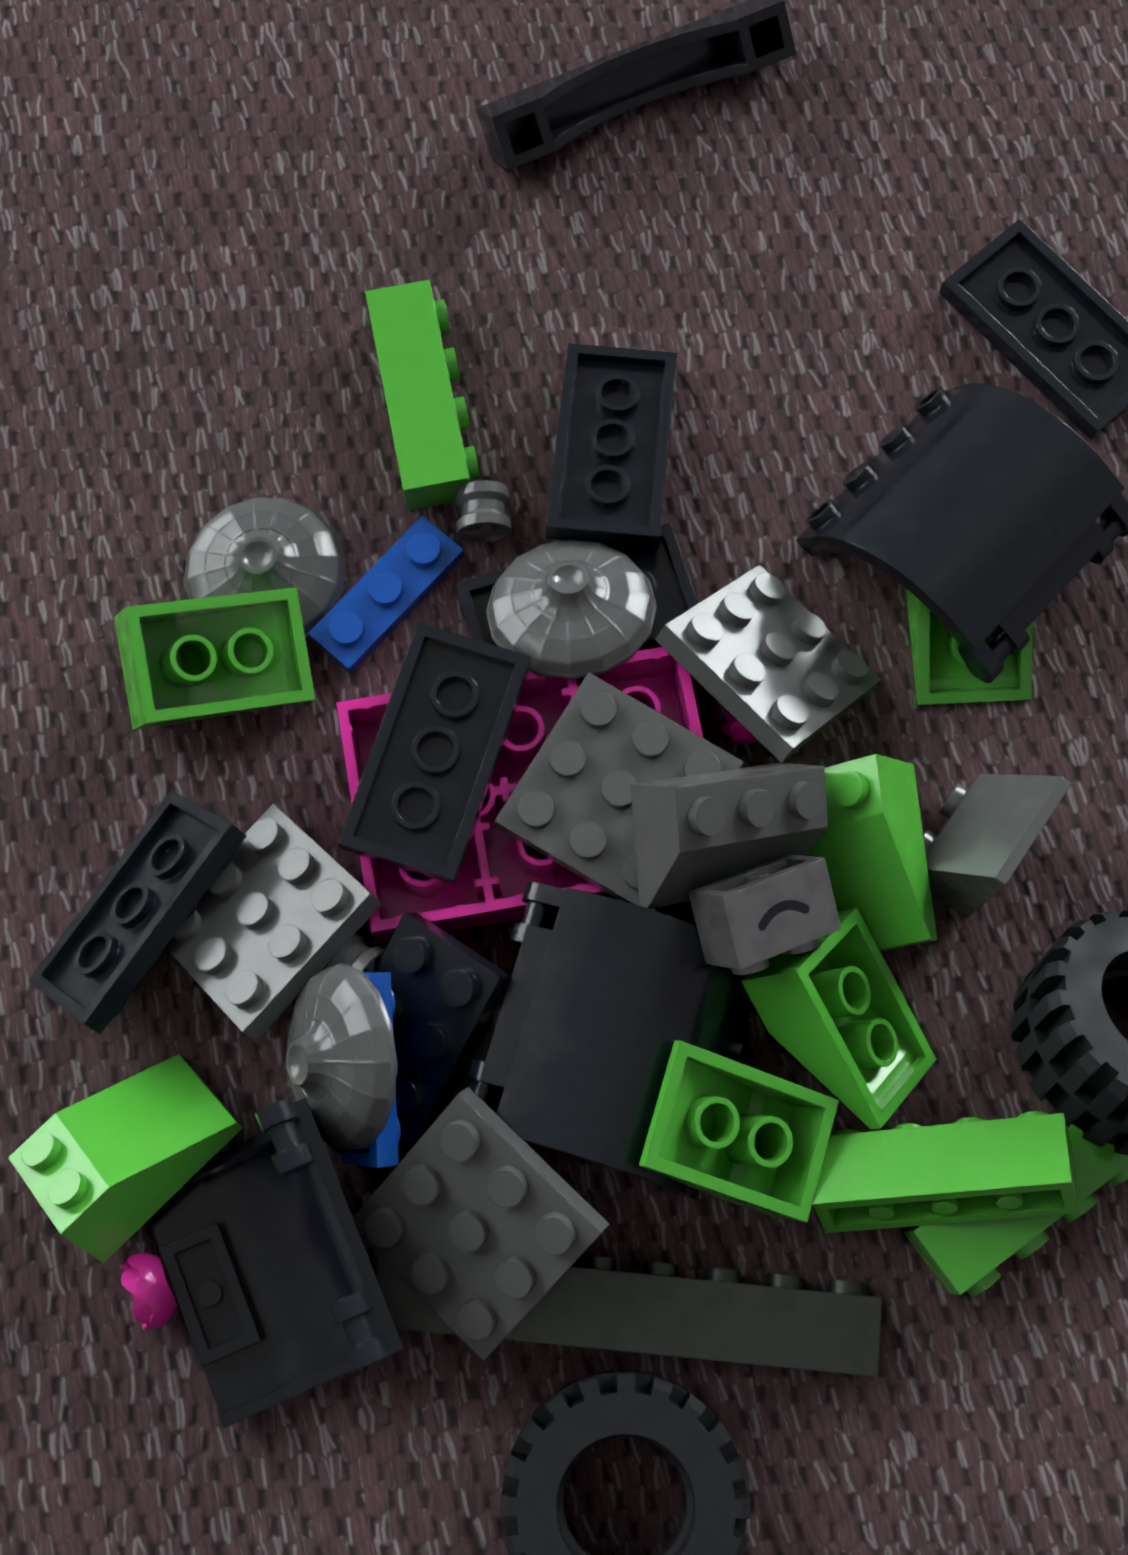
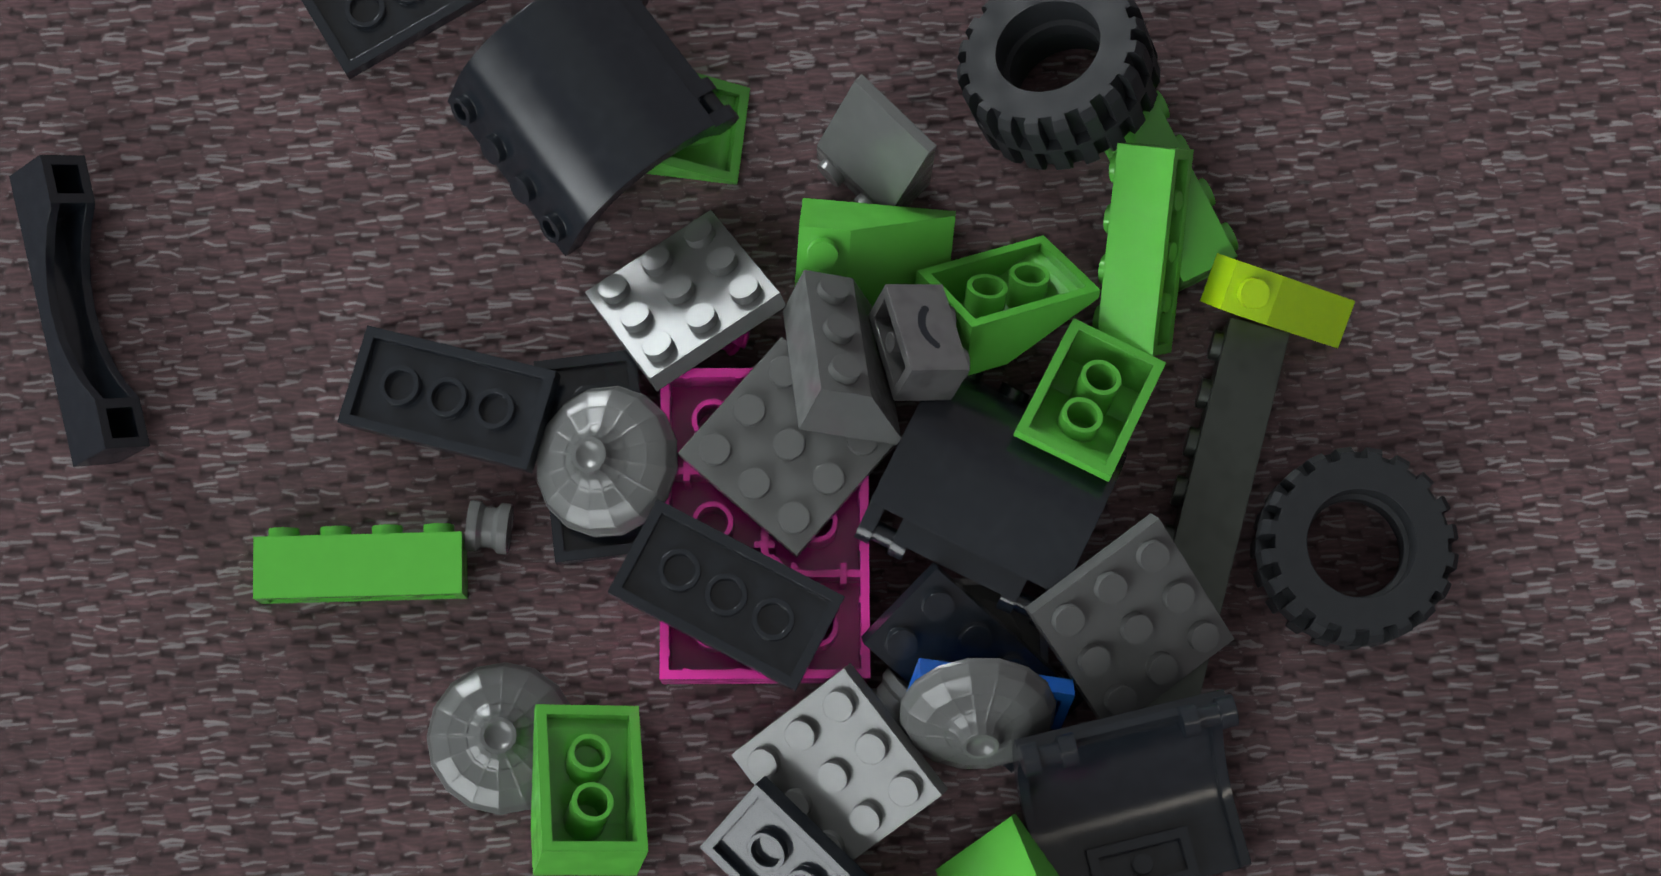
camera: 85 degrees left, 5 degrees up
(386, 594) = (548, 628): blue plate -> none
(914, 1355) = (1277, 301): none -> lime slope

